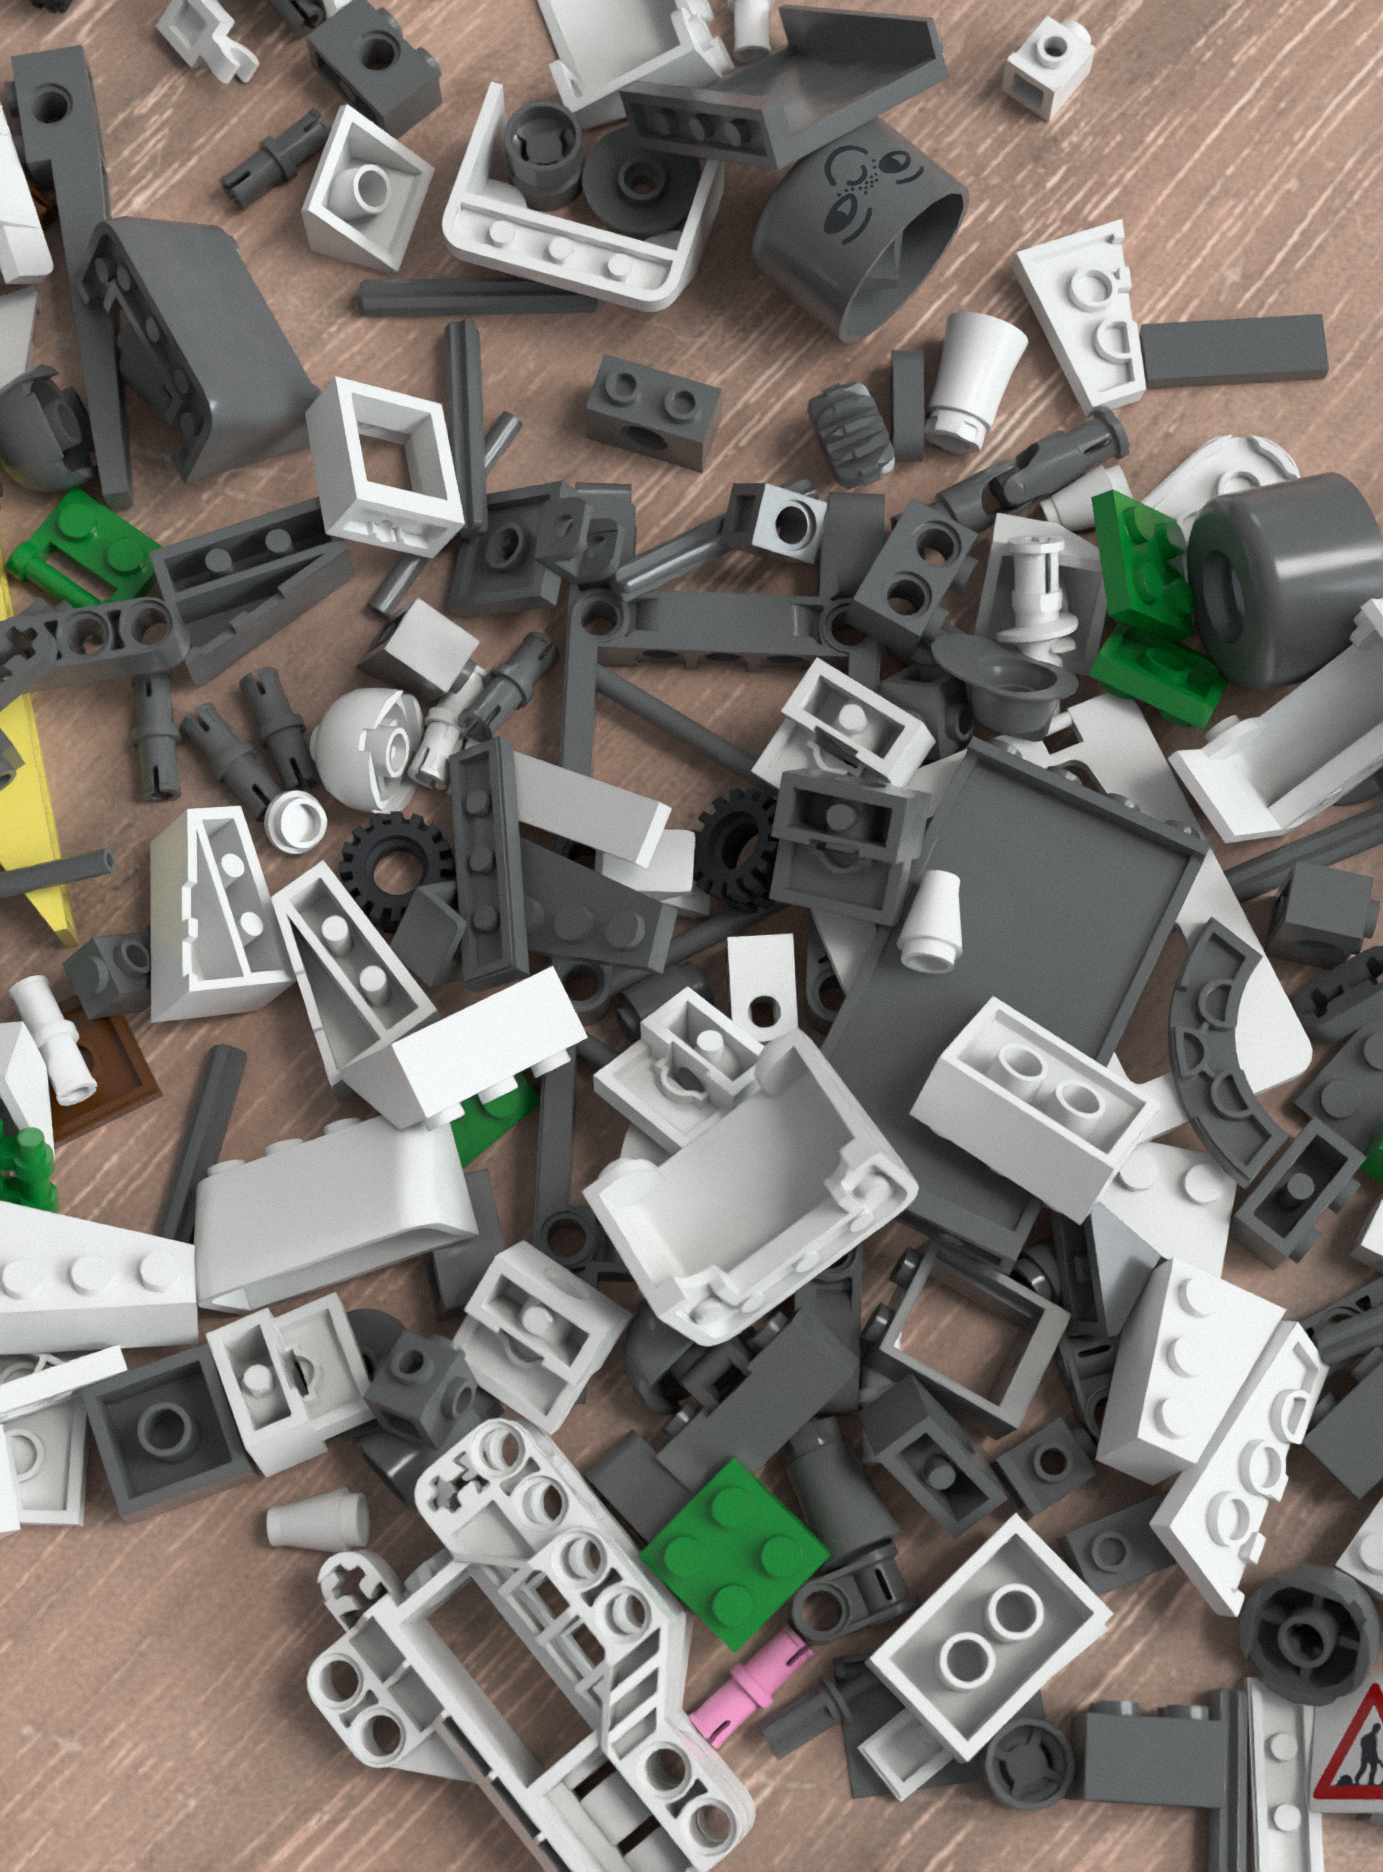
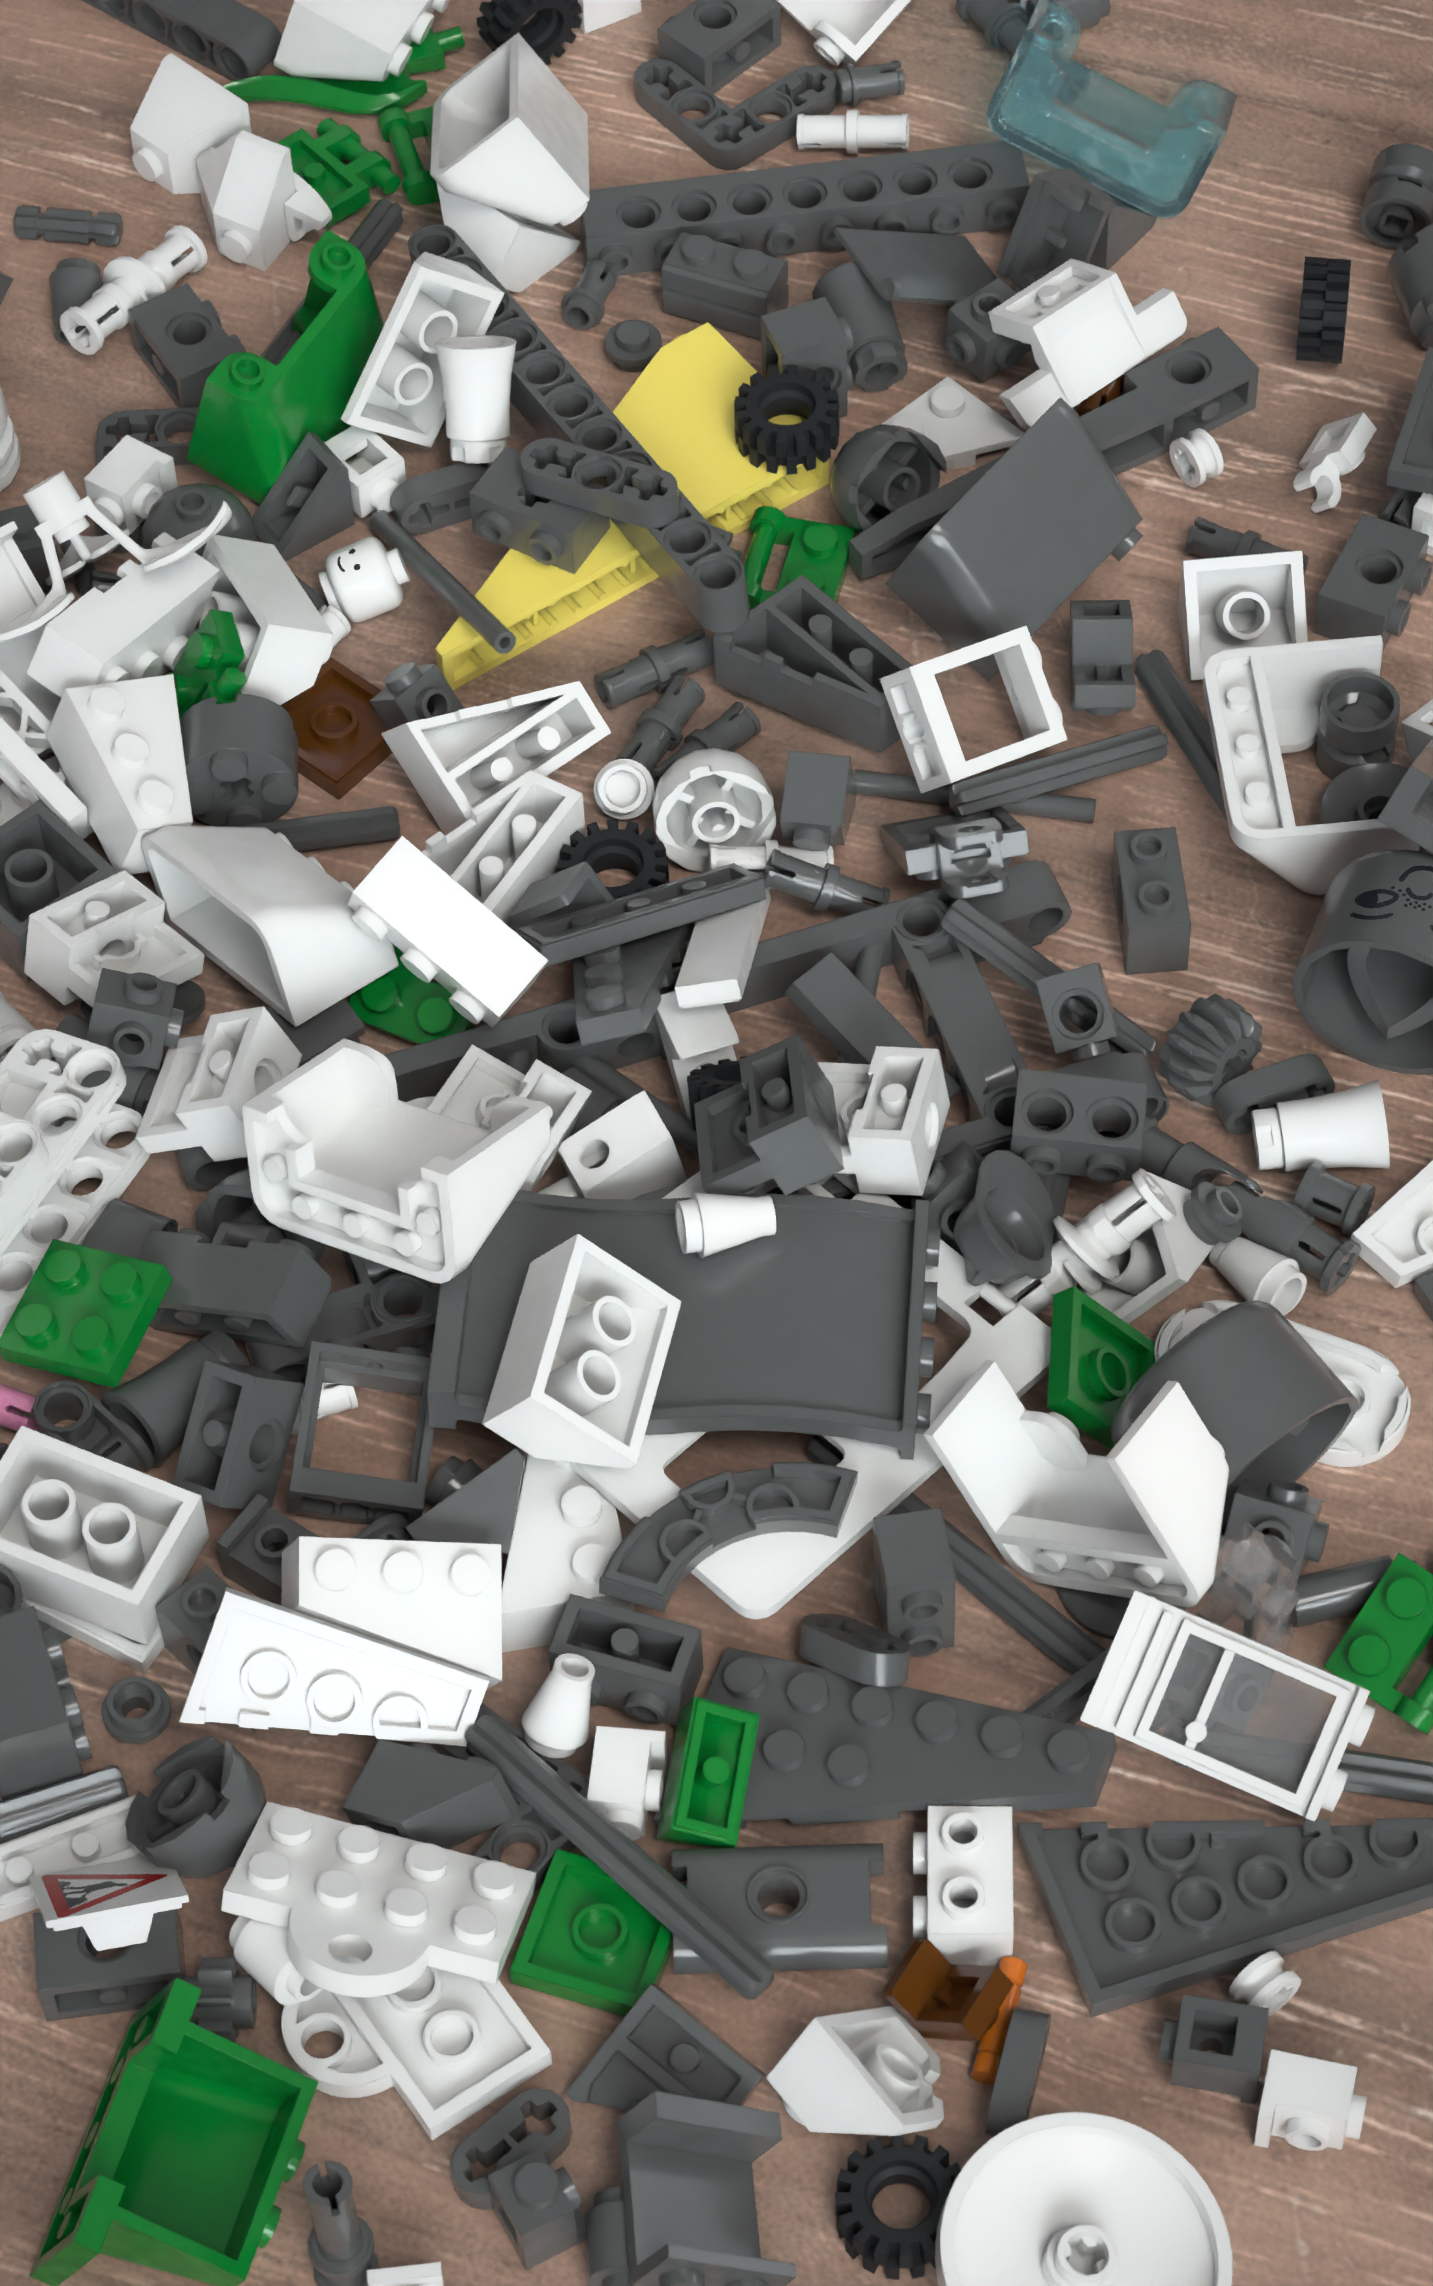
camera: 70 degrees right, 20 degrees down
(54, 1039) = (341, 687): white pin -> none
(111, 1168) = (240, 760): none -> dark grey brick
(144, 149) = (1196, 457): none -> white bush
(358, 338) = (1101, 656): none -> dark grey brick
(706, 716) = (850, 1014): none -> dark grey tile
(1037, 507) = (1213, 1213): none -> dark grey plate
(1040, 406) = (1334, 1199): none -> dark grey bush
(1143, 566) = (1183, 1288): green plate -> none
(1176, 1652) = (133, 1694): none -> dark grey plate
(1328, 1272) = (560, 1711): none -> white cone

